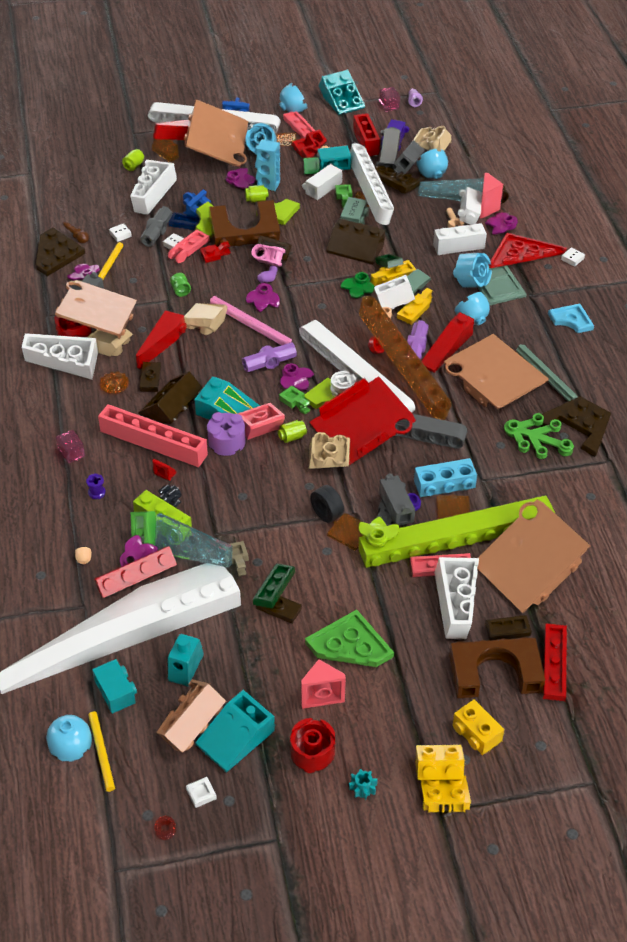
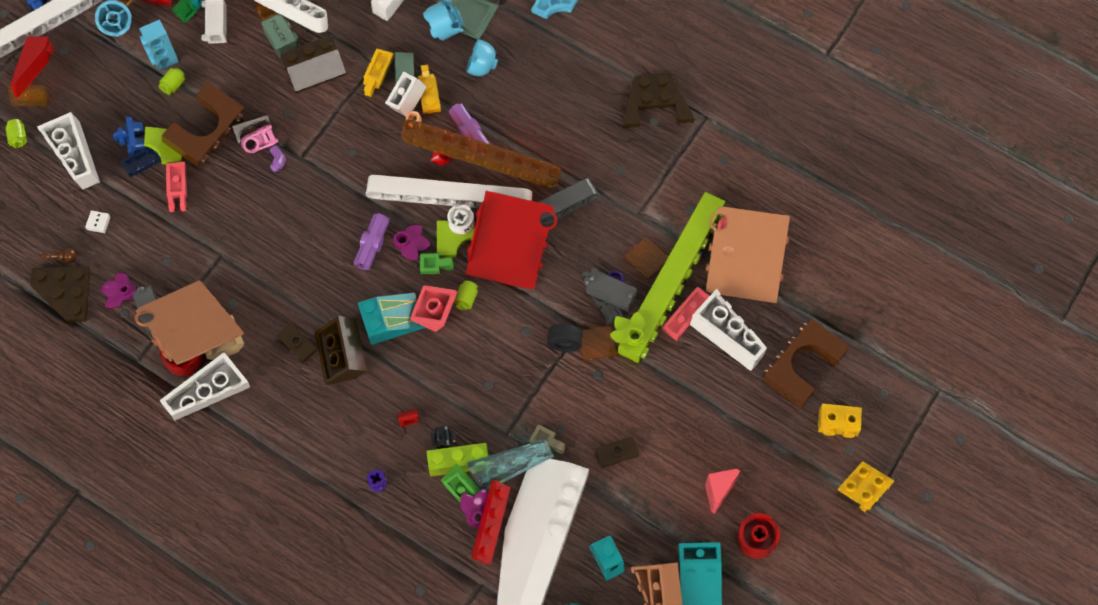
camera: 45 degrees left, 20 degrees up
(70, 446) = (315, 465): clear pink brick -> none
(83, 555) = (436, 546): light nougat hinge -> none
(108, 386) = (275, 382): clear orange gear -> none
(110, 261) = (125, 259): yellow bar -> none
(153, 435) = (369, 397): coral brick -> none
(156, 226) = (124, 189): dark grey piece -> none
(163, 335) = (261, 286): red slope -> none
(172, 240) = (157, 192): white tile -> none
(180, 284) = (218, 232): bright green wheel -> none
(206, 317) = (273, 247): tan slope -> none
(214, 253) = (204, 175): red plate -> none
(216, 133) = (67, 45): nougat piece -> none
(226, 433) = (420, 333): medium lavender brick -> none
(240, 178) = (137, 73): magenta plate -> none
(252, 322) = (315, 219): bright pink axle -> none
(263, 298) = (301, 187): magenta plate -> none
(274, 585) = (600, 440): dark green tile -> none
(285, 210) = (213, 74): lime tile -> none
(328, 452) = (514, 290): tan slope -> none
(343, 192) = (245, 18): bright green plate -> none
(350, 641) = (695, 433): bright green plate -> none
(358, 285) = (361, 110): green plate -> none
(363, 784) = (817, 527): teal gear -> none
(389, 260) = (363, 63): dark green tile -> none
(439, 762) = (845, 470): yellow brick -> none
(445, 477) = (618, 228): medium azure brick -> none
(449, 341) = (491, 107): red slope -> none
(495, 372) = (556, 106): nougat piece -> none
(508, 627) = (781, 324): dark brown plate -> none
(554, 381) = (588, 73): sand green axle -> none
(555, 662) = (835, 322): red plate -> none
(564, 447) = (640, 141): bright green plant -> none

